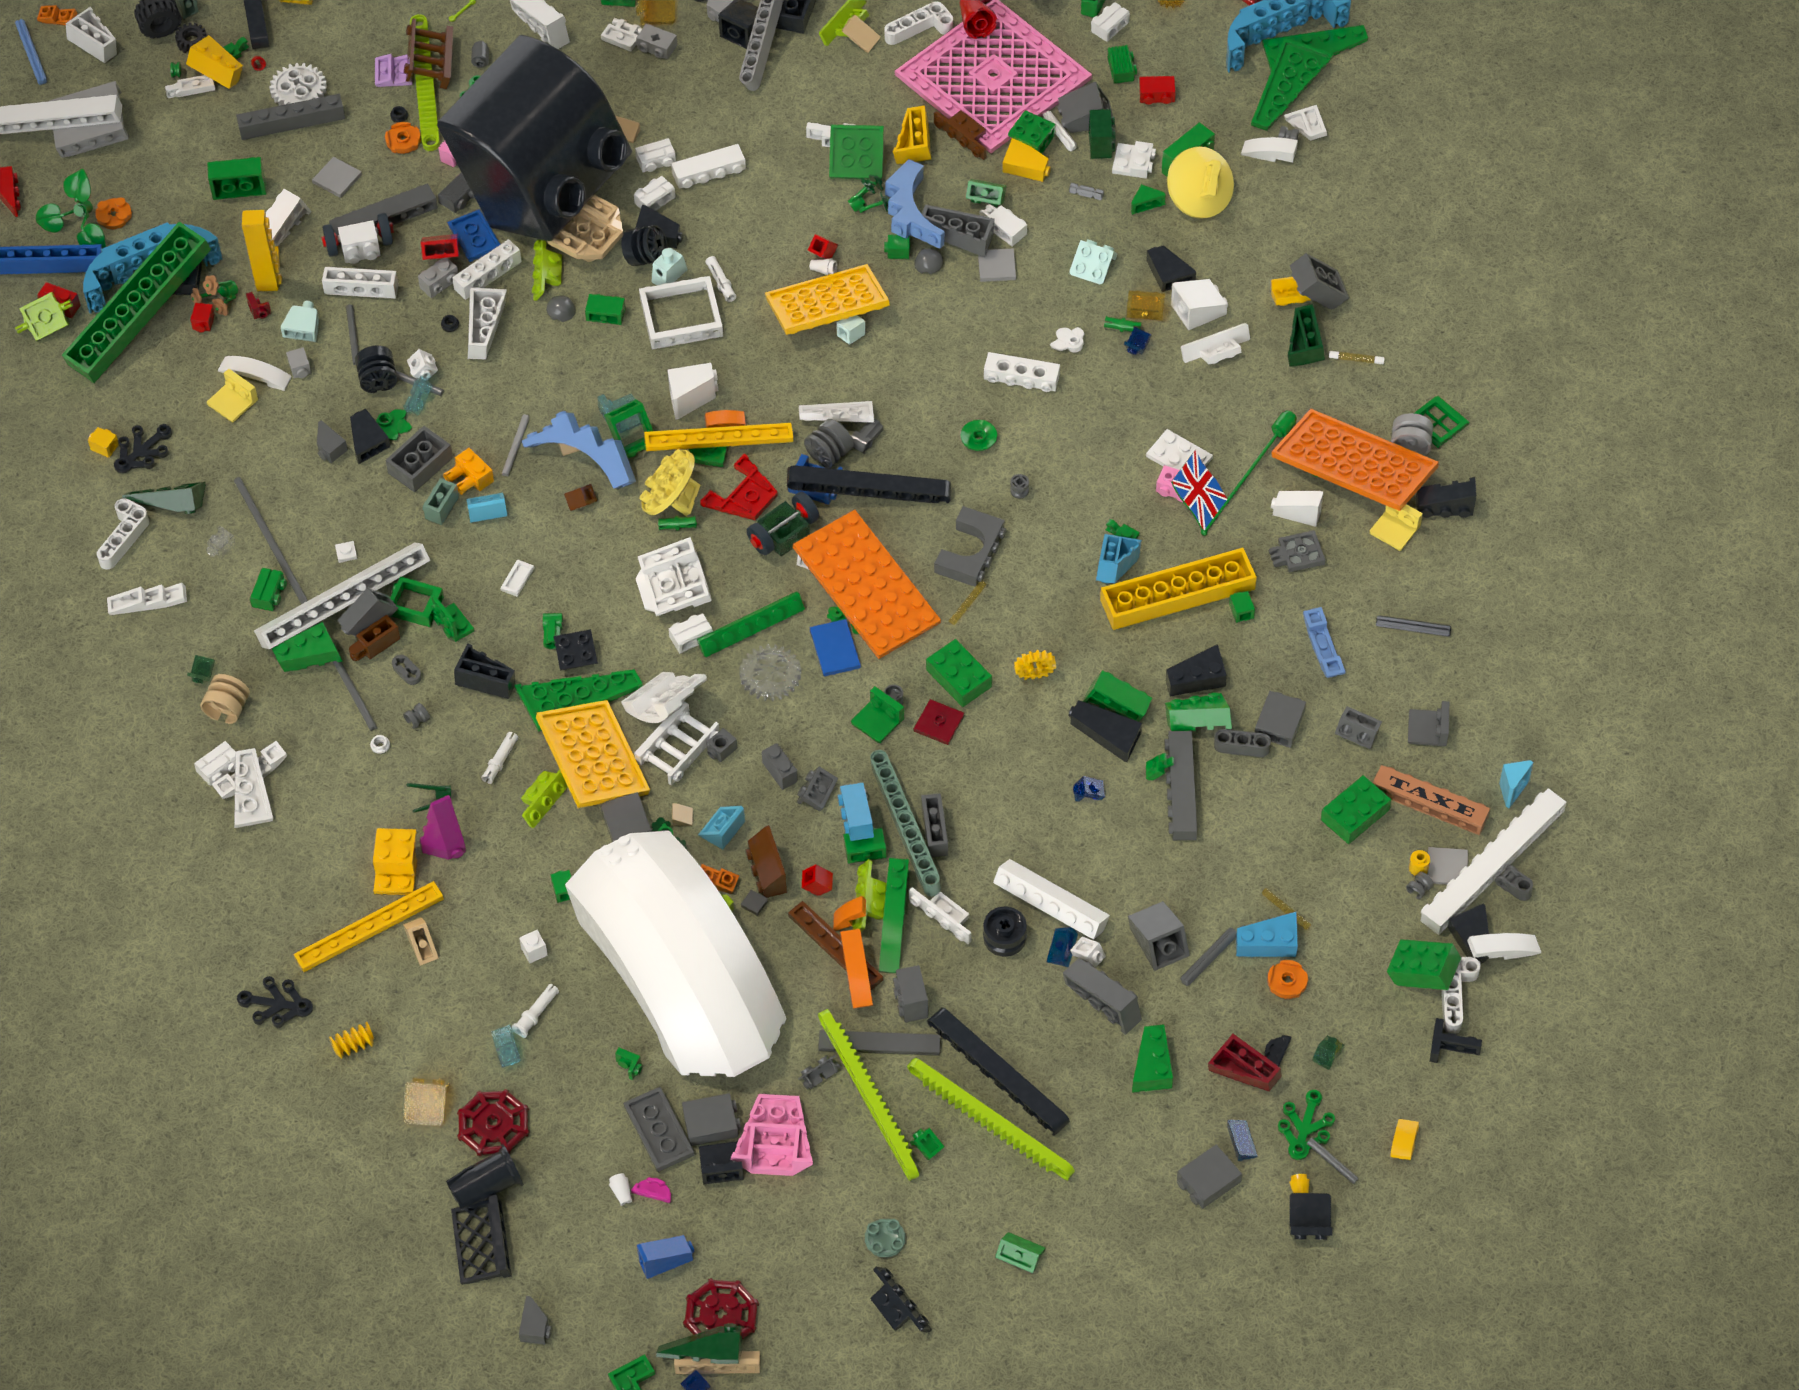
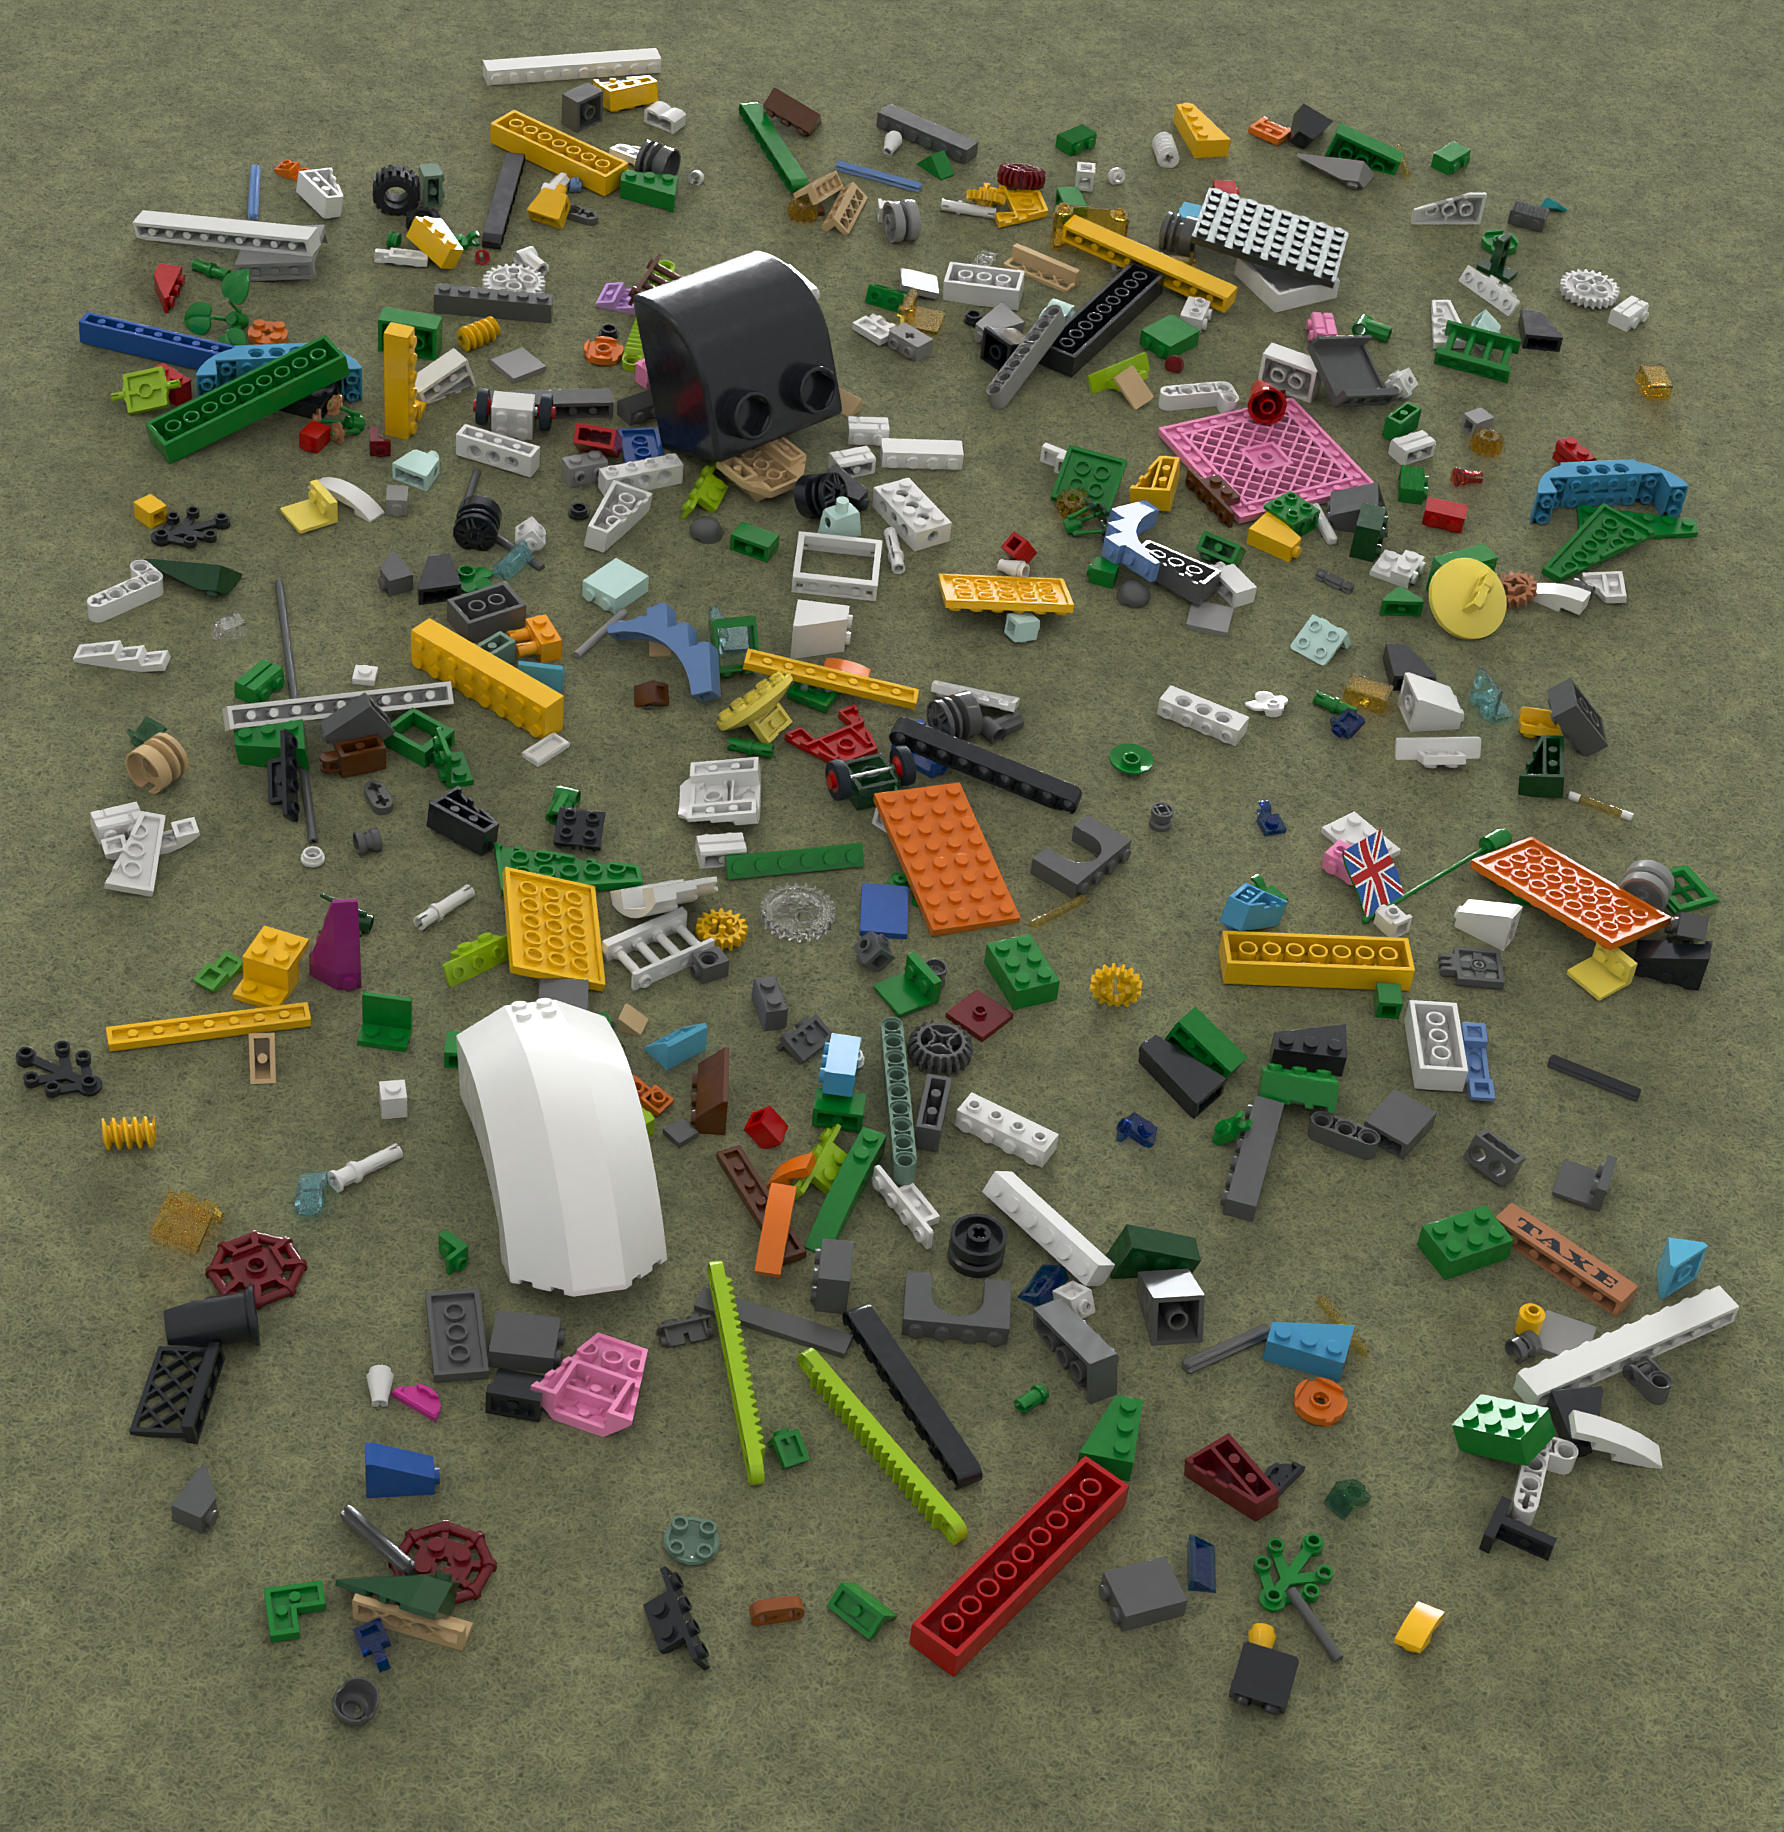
camera: 10 degrees right, 15 degrees down
(34, 156) = (209, 269): none -> green pin
(291, 155) = (478, 333): none -> yellow piece
(298, 52) = (529, 257): none -> white piece
(328, 680) = (282, 777): none -> black bracket
(355, 874) = (218, 975): none -> bright green slope
(447, 529) = (487, 679): none -> yellow brick
(501, 882) = (385, 1022): none -> green bracket
(510, 394) = (615, 586): none -> light aqua brick
(670, 1311) = (377, 1540): none -> dark grey axle
(722, 236) = (911, 514): none -> white brick
(728, 703) = (730, 928): none -> yellow gear
(841, 691) = (869, 951): none -> dark grey brick
(843, 179) = (1065, 501): none -> clear yellow gear
(921, 770) = (938, 1053): none -> dark grey gear
(963, 1273) = (776, 1610): none -> dark orange beam
(987, 1005) = (925, 1319): none -> dark grey arch
(993, 821) = (1006, 1130): none -> white brick
(1083, 1045) = (1037, 1395): none -> green pin
(1103, 461) = (1269, 823): none -> clear blue plate
(1118, 1183) = (1018, 1566): none -> red brick
(1133, 895) = (1151, 1250): none -> dark green wedge
(1160, 40) = (1462, 477): none -> clear red pin
(1224, 528) = (1392, 920): none -> white brick
(1234, 153) = (1518, 588): none -> nougat gear
(1244, 280) = (1487, 698): none -> clear light blue bracket
(1289, 638) = (1435, 1046): none -> white brick
(1452, 466) = (1687, 927): none -> dark grey brick

